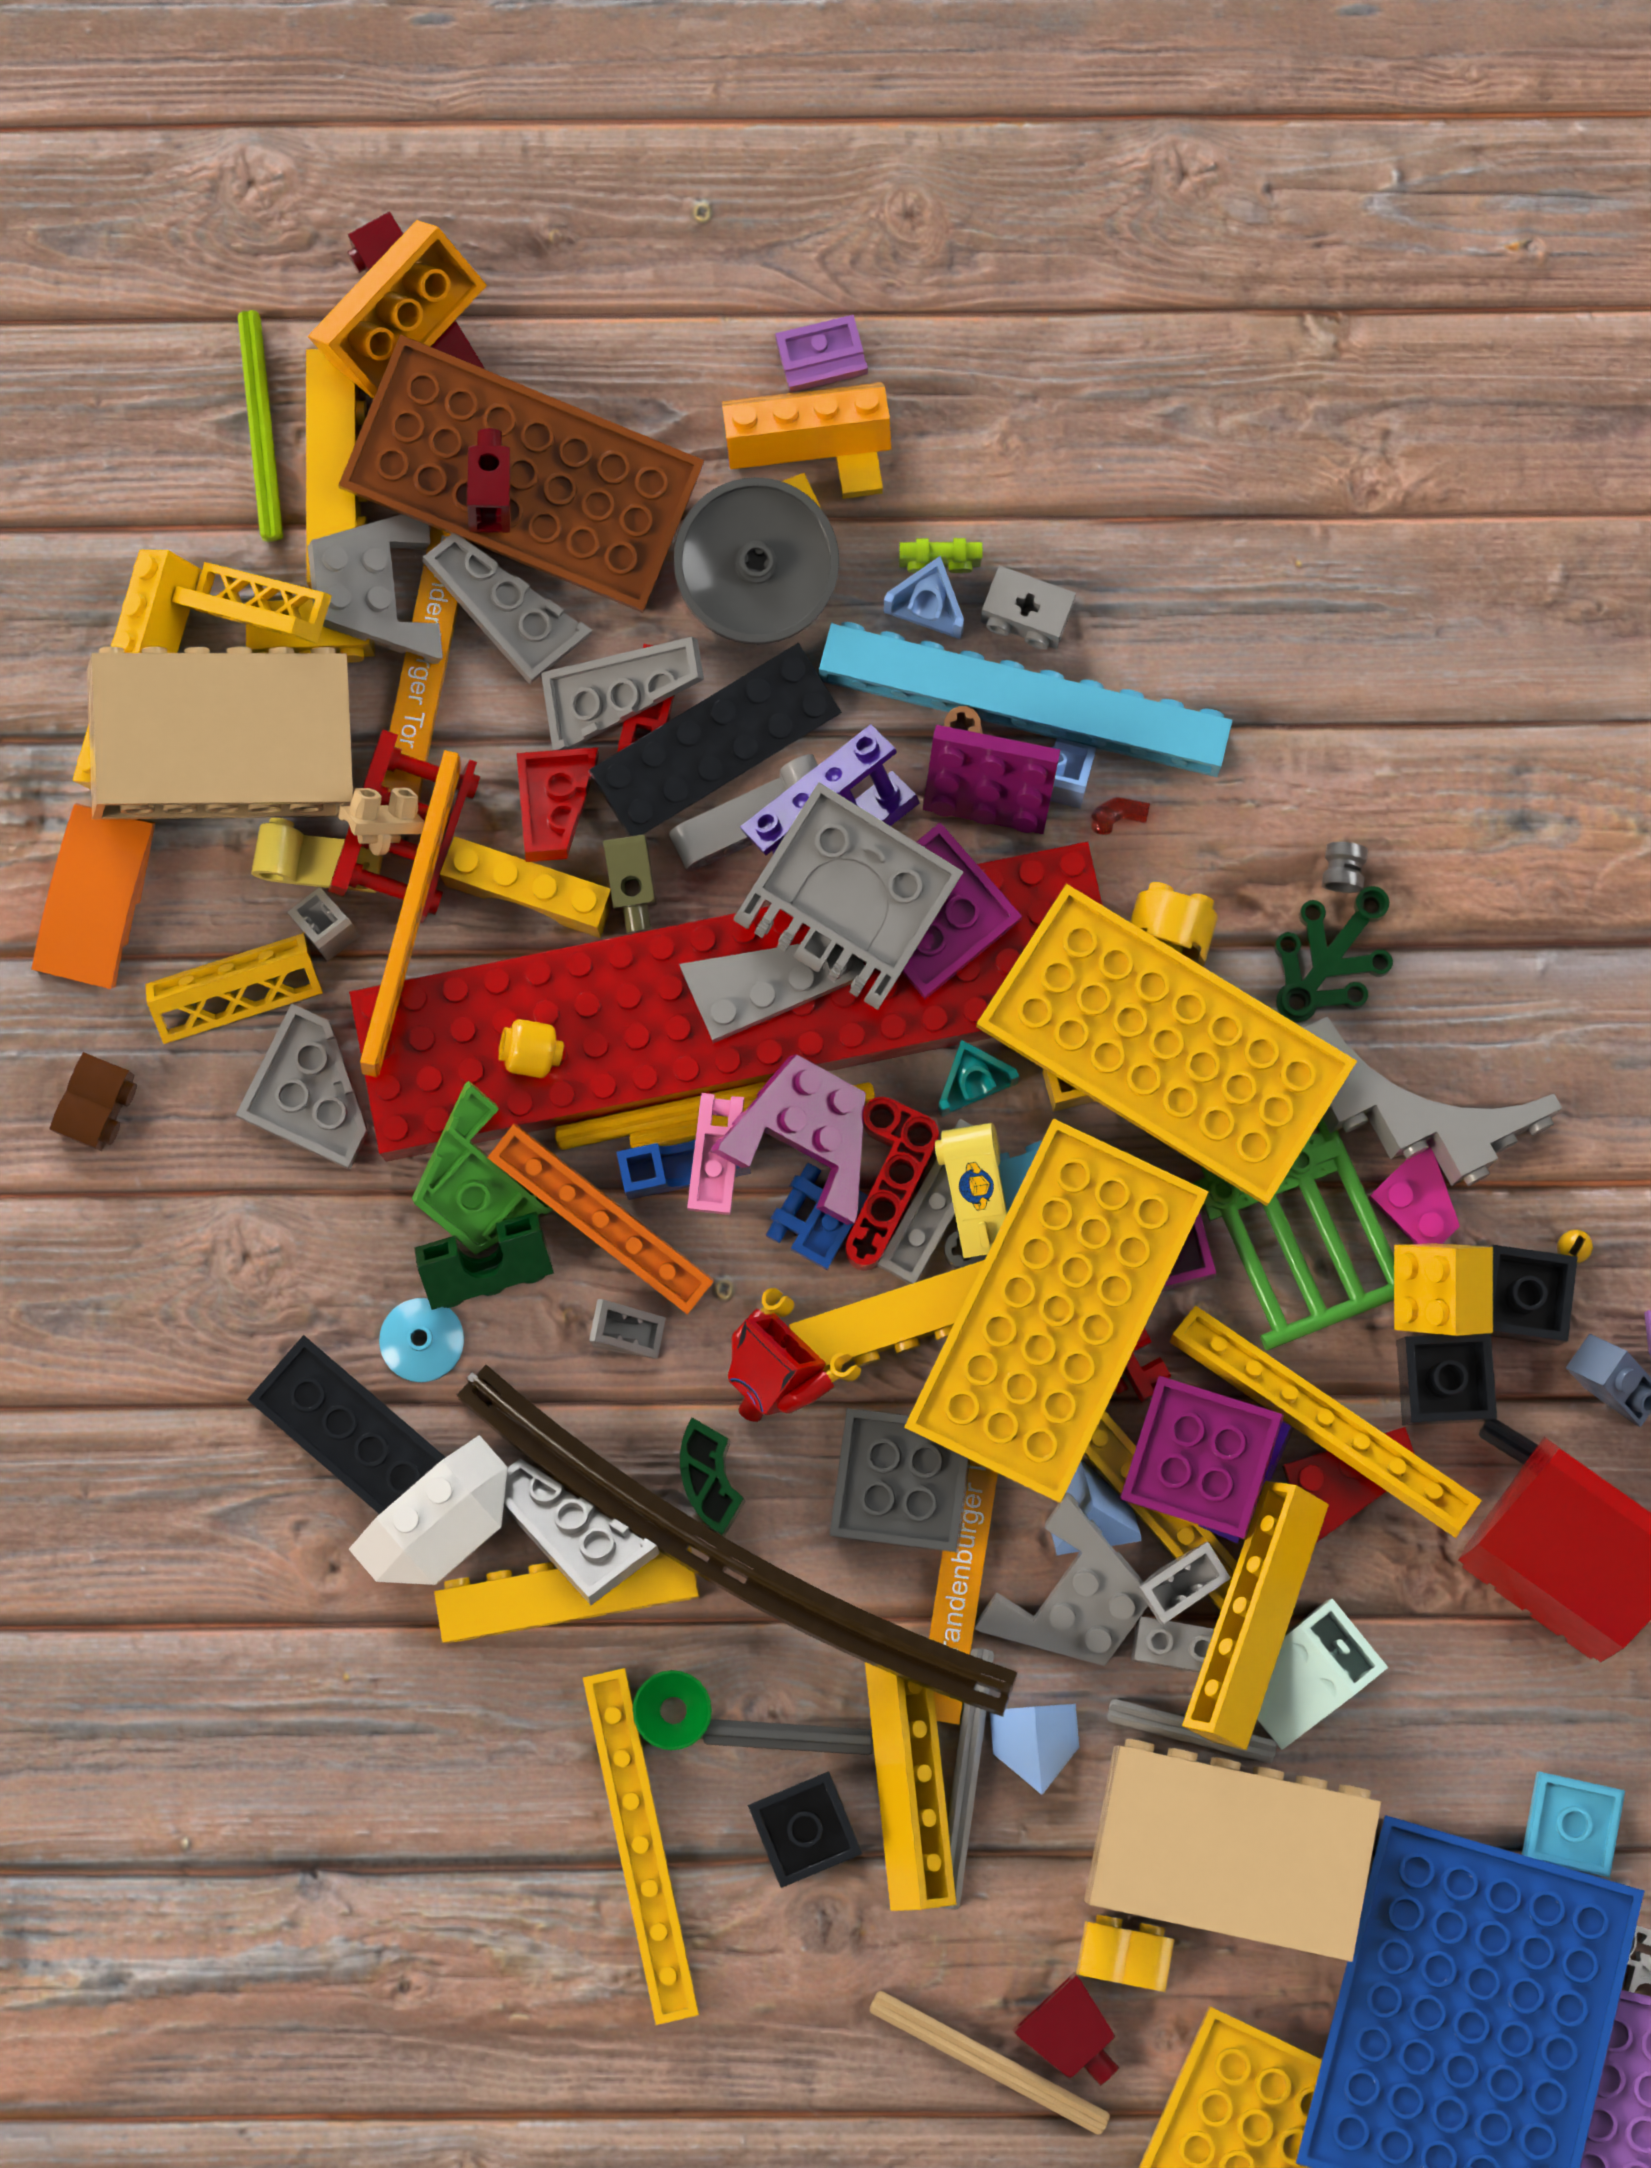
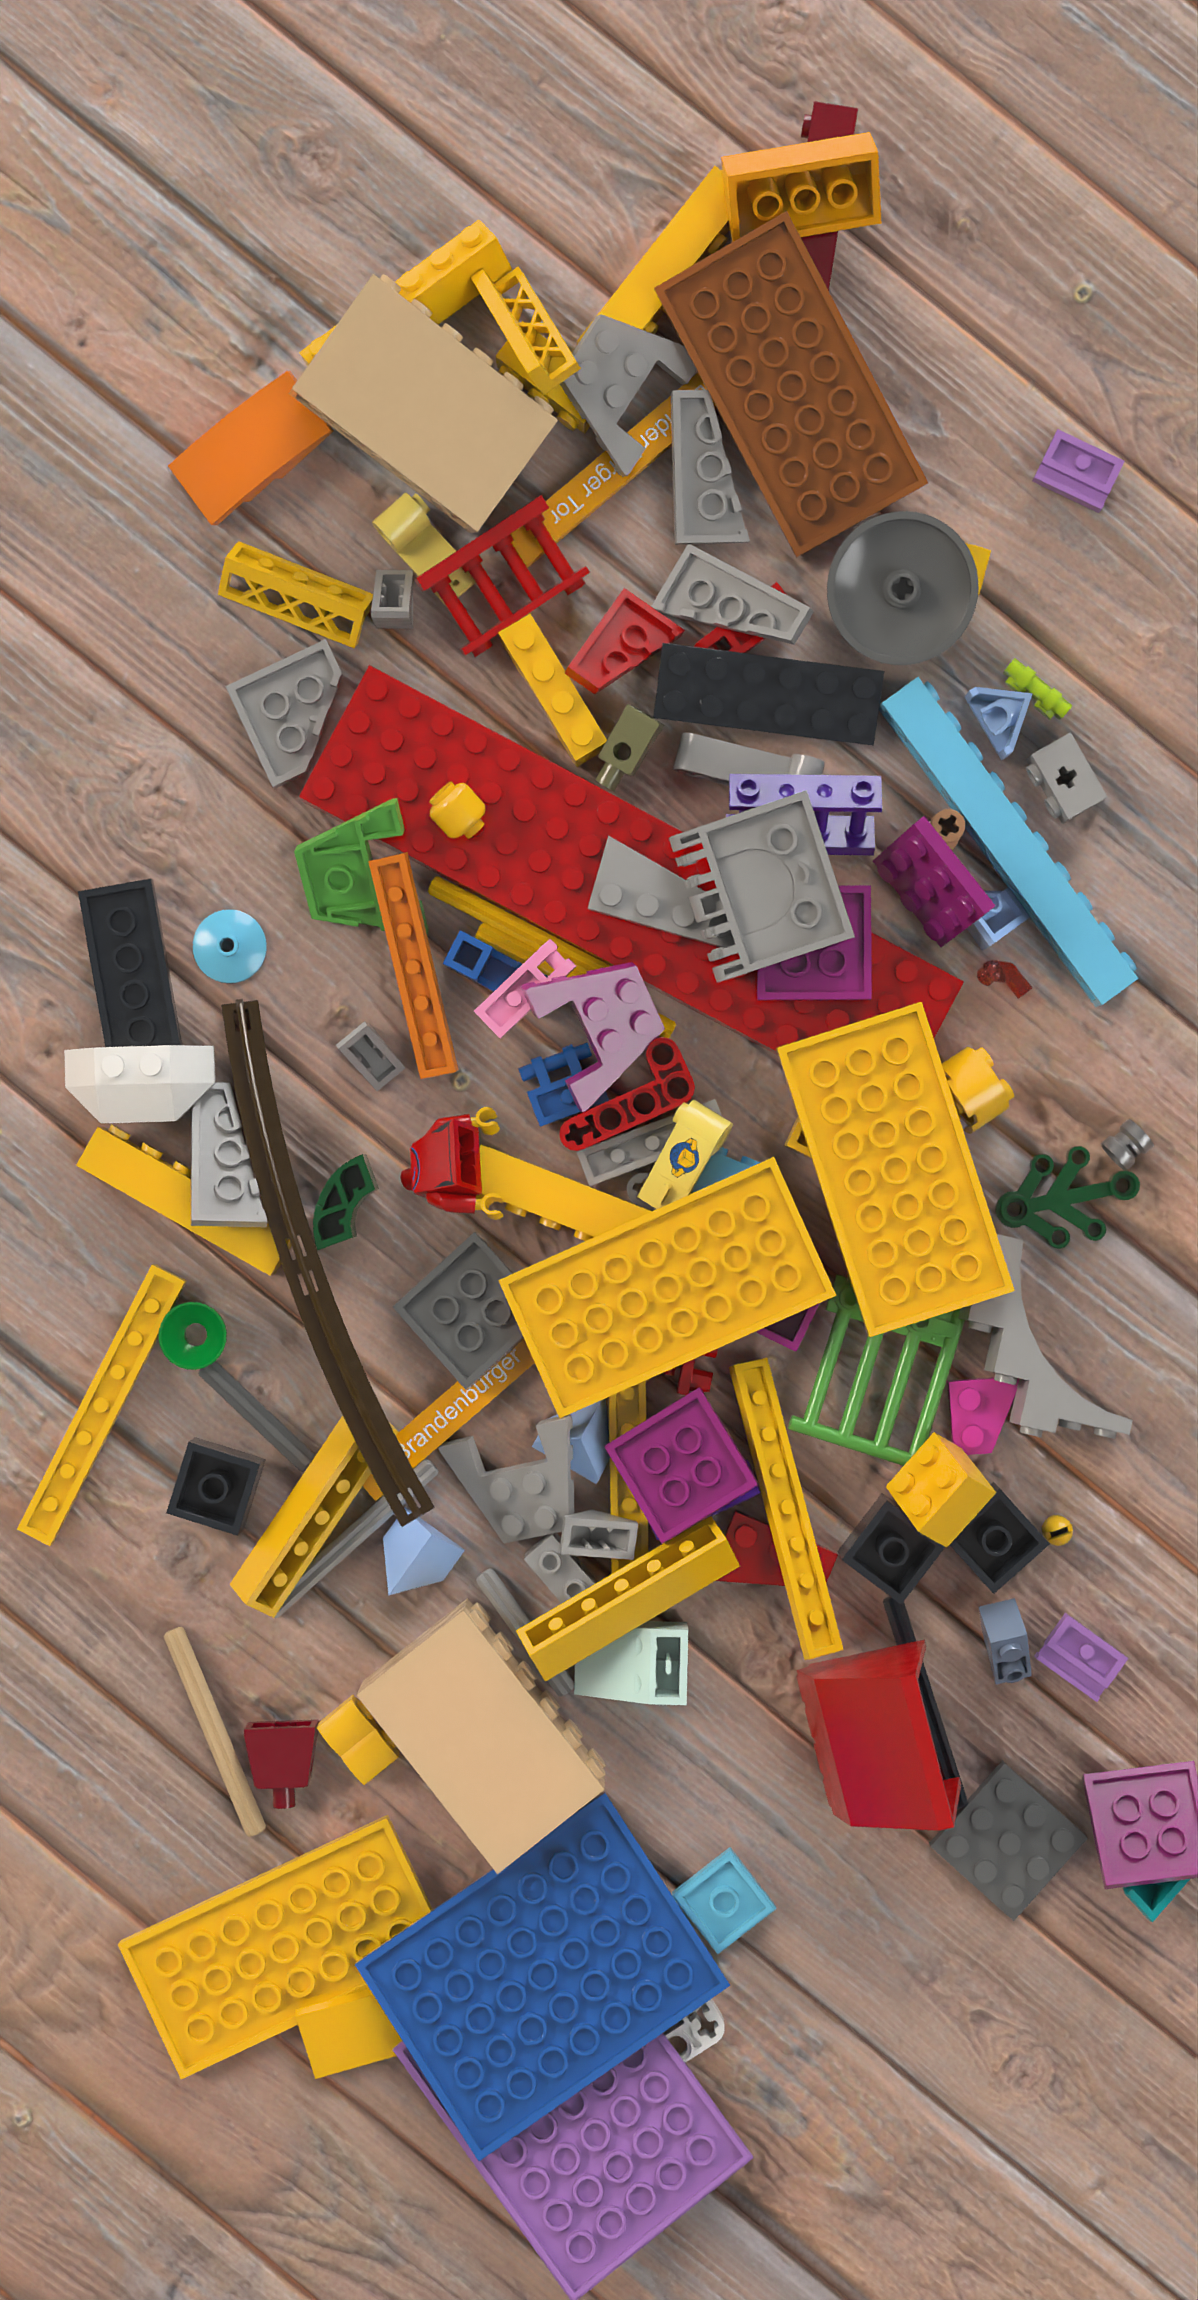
camera: 35 degrees right, 10 degrees up
(93, 1102) = (136, 596): reddish brown brick -> none
(260, 426) = (639, 194): lime axle -> none
(379, 823) = (485, 563): tan hips -> none
(410, 914) = (454, 645): light orange tile -> none
(454, 1277) = (283, 923): dark green arch -> none
(489, 483) = (752, 383): dark red torso -> none
(807, 425) = (1022, 515): light orange slope -> none
(859, 475) = (1038, 570): yellow slope -> none
(973, 1078) = (748, 1079): teal slope -> none

